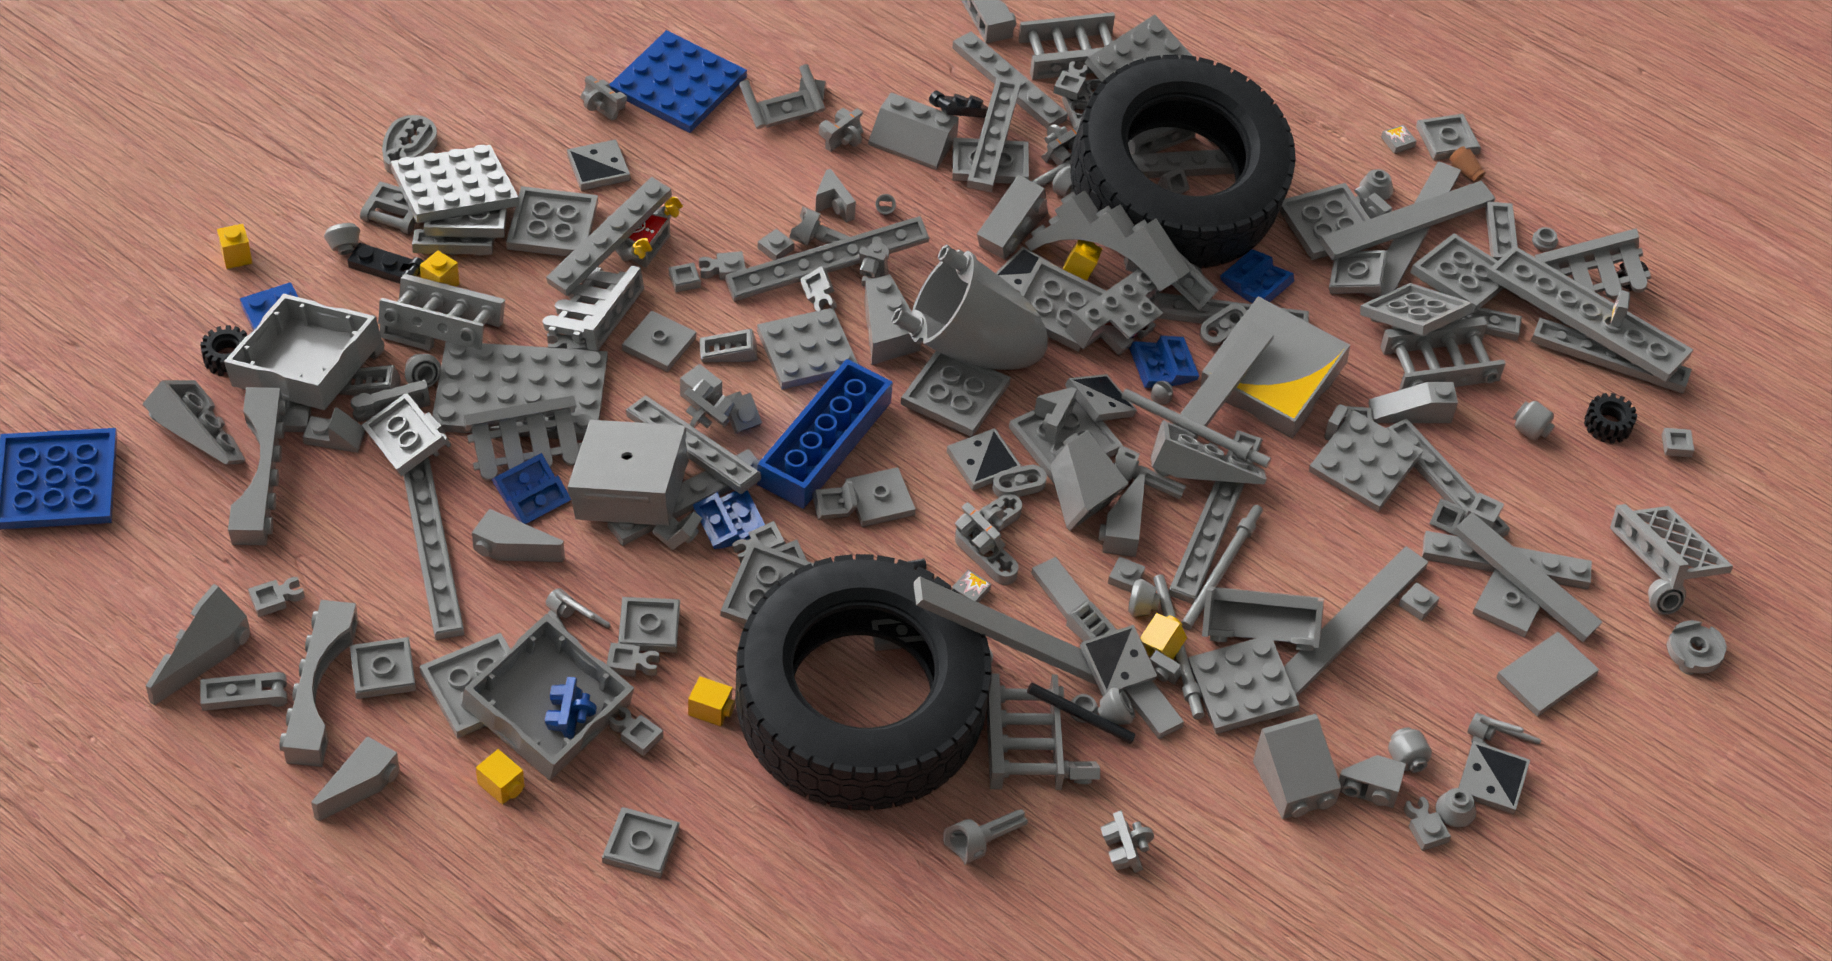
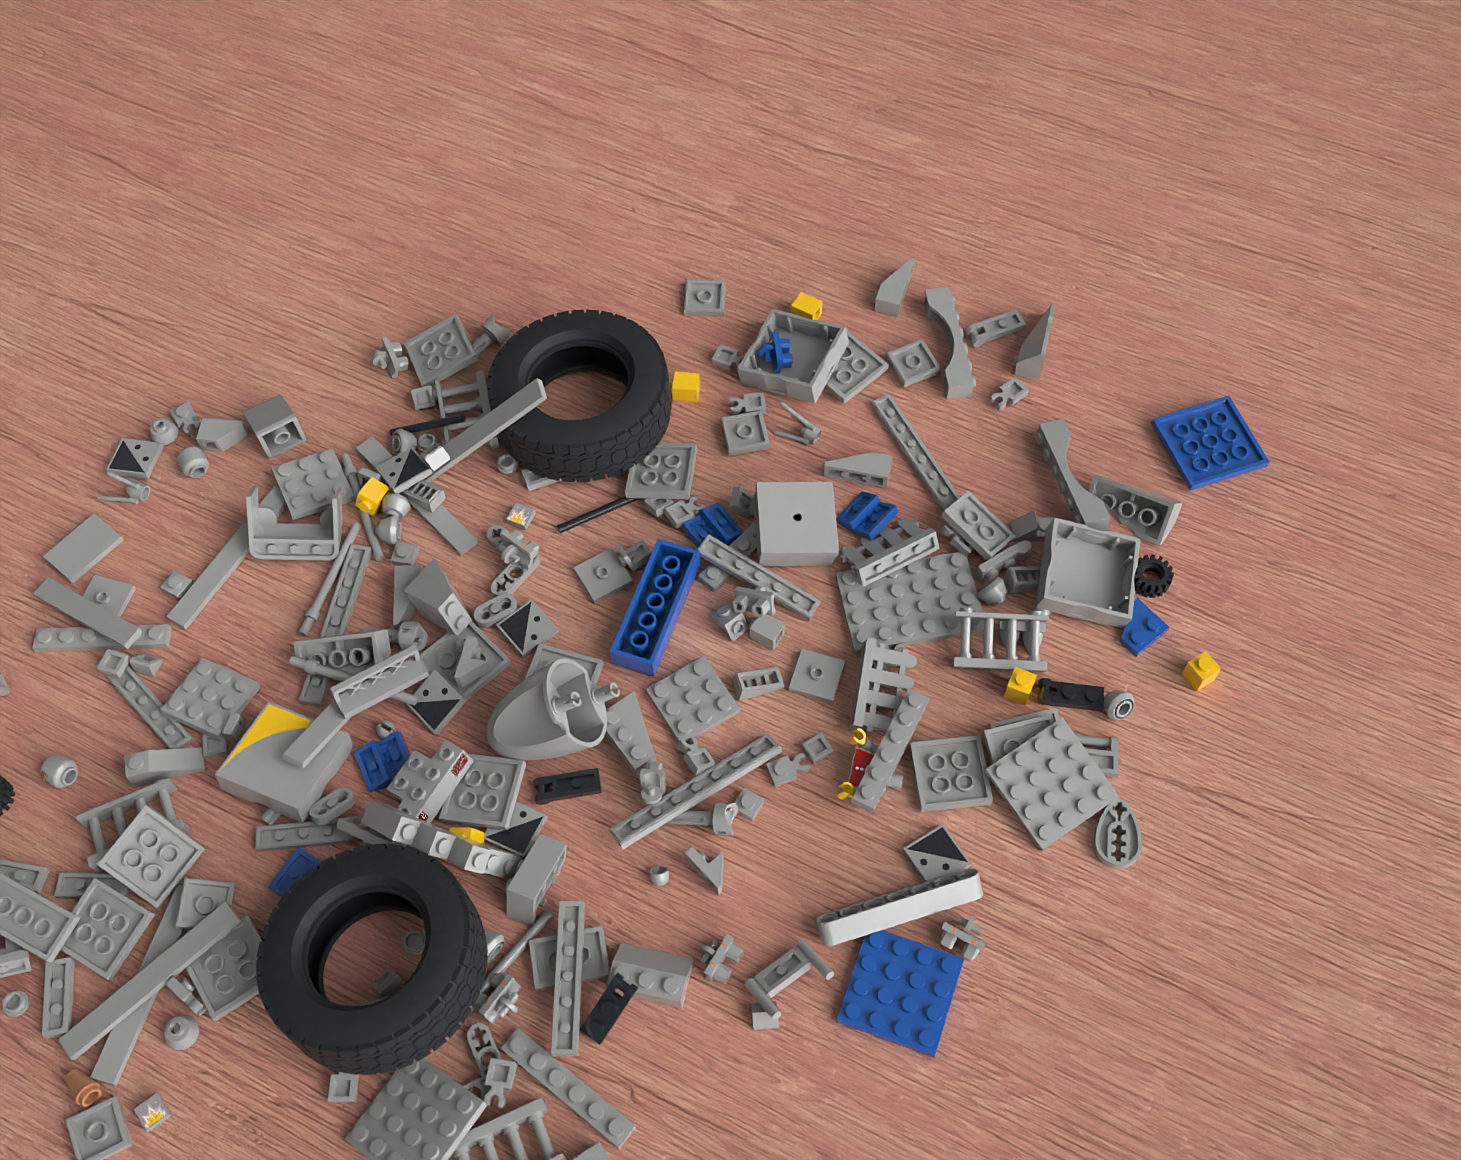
camera: 175 degrees right, 10 degrees up
(642, 120) = (899, 907): none -> beam
(1050, 825) = (441, 351): none -> light grey plate
(1075, 648) = (435, 456): none -> slope
(1133, 616) = (395, 505): none -> light grey cone
(1163, 402) = (380, 683): none -> light grey fence

